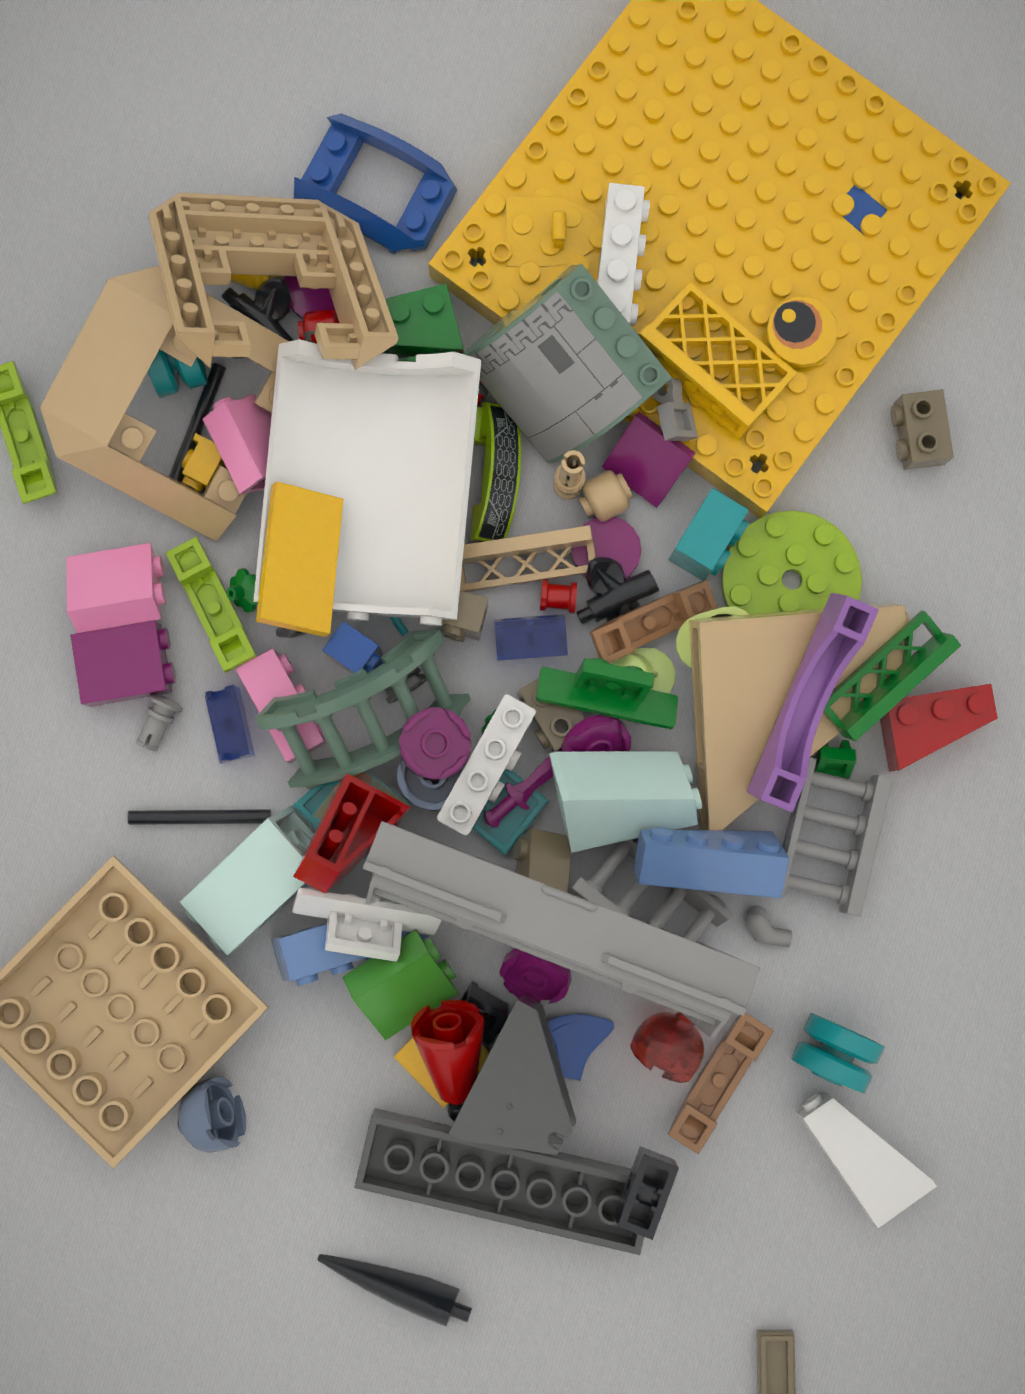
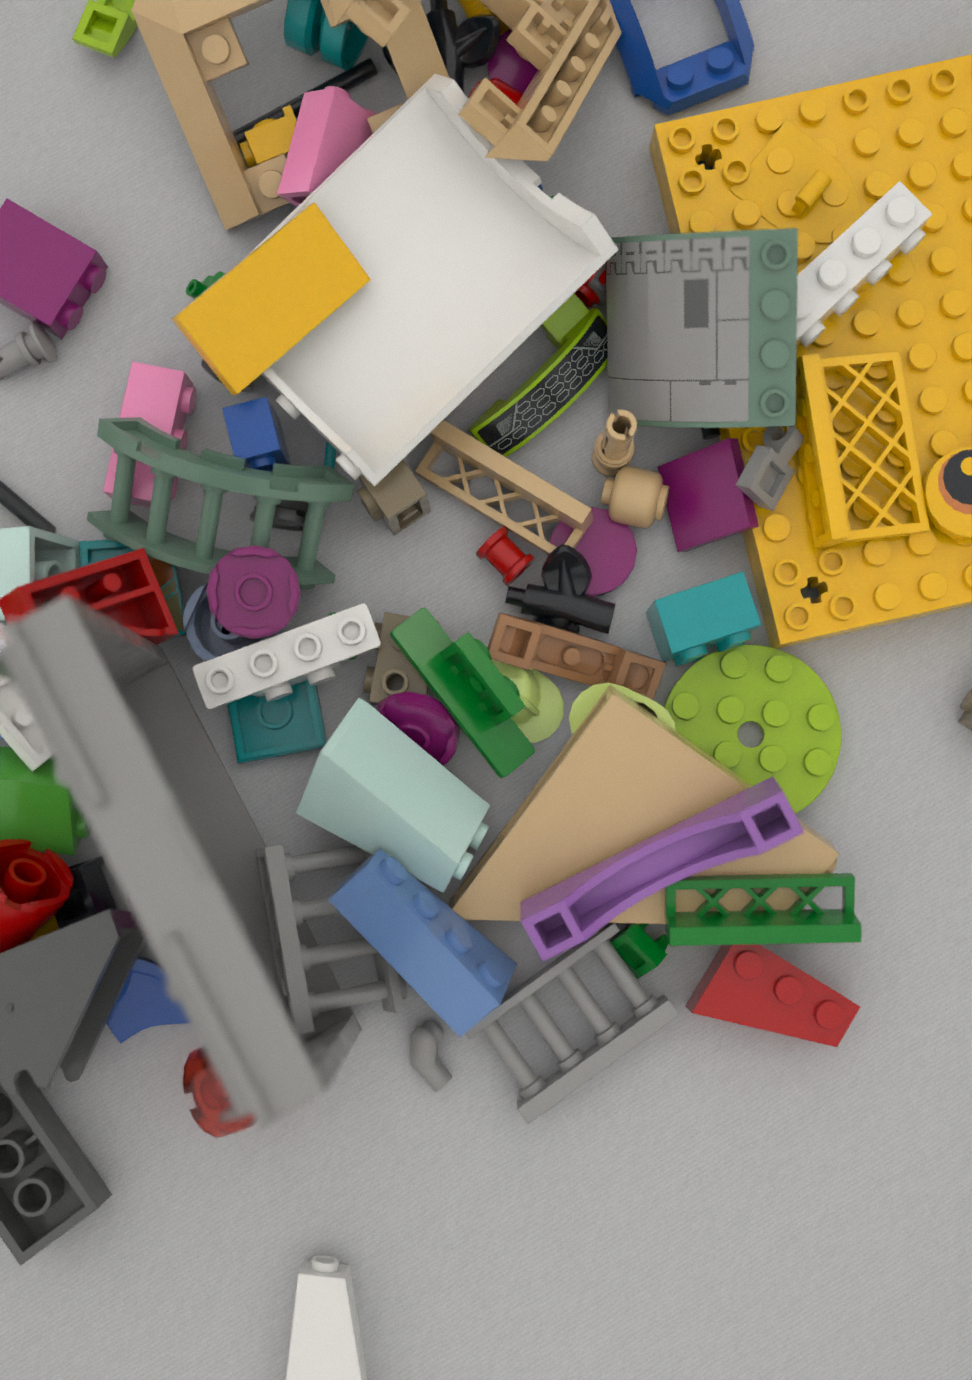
camera: 55 degrees right, 0 degrees up
(114, 587) = (85, 188): bright pink brick -> none
(211, 604) = (177, 261): lime slope -> none
(229, 724) = (94, 398): clear blue hinge -> none
(424, 322) = (597, 175): green wedge -> none
(519, 793) = (297, 714): magenta sword -> none
(530, 637) = (443, 572): clear blue hinge -> none
(544, 858) = (253, 807): dark tan brick -> none
(646, 1193) = (70, 1211): black brick -> none
(718, 1081) = (250, 1162): medium nougat slope -> none
(836, 1056) = (387, 1239): teal wheel -> none

